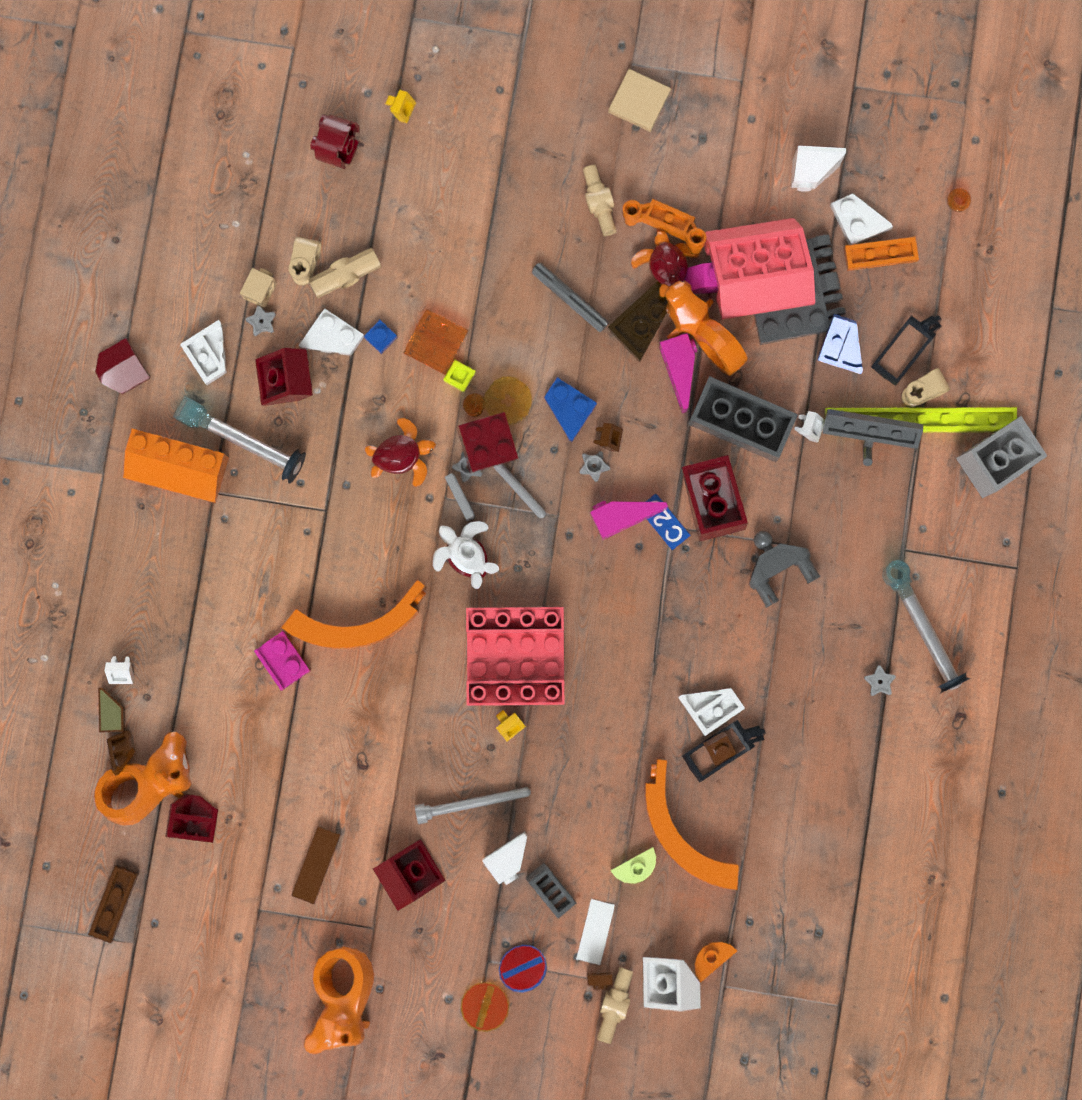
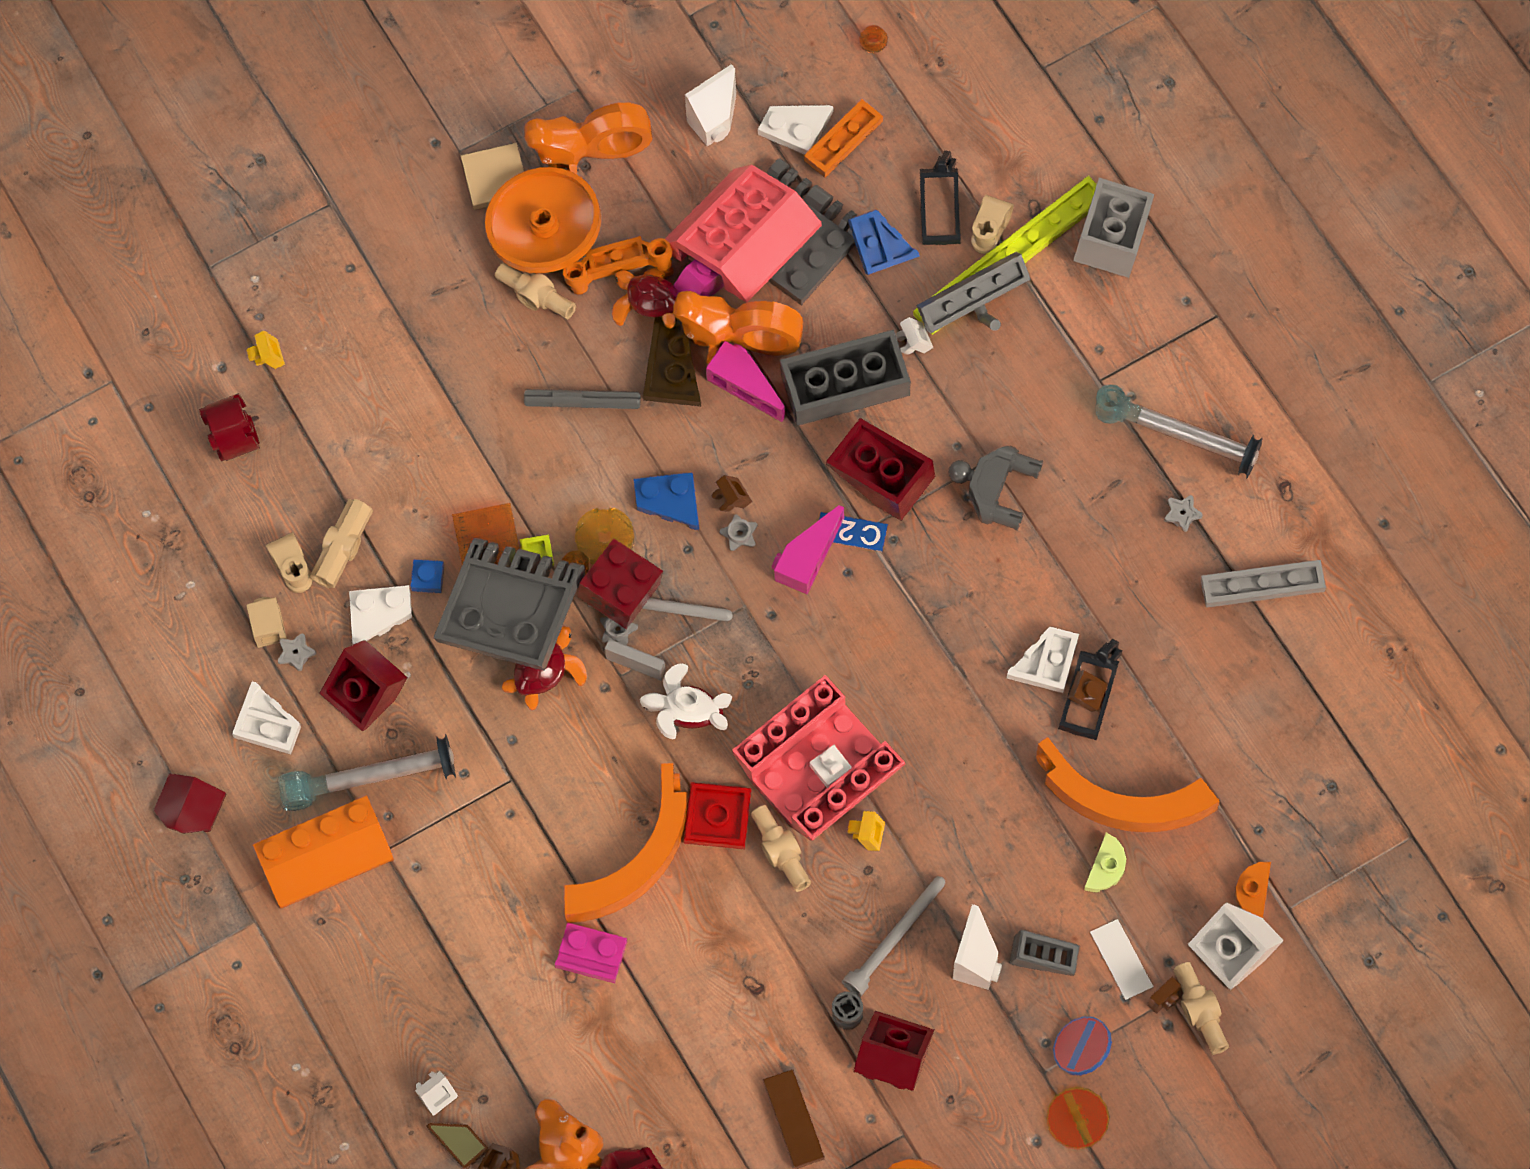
camera: 40 degrees left, 15 degrees down
(404, 829) = (847, 1017): none -> dark grey wheel
(405, 402) = (509, 606): none -> dark grey hinge
(428, 637) = (717, 815): none -> red tile
(447, 691) = (781, 848): none -> tan pin
(519, 667) = (830, 766): none -> white tile
(641, 157) = (543, 220): none -> orange dish
(726, 127) = (606, 133): none -> orange animal
(889, 770) = (1263, 583): none -> light grey plate

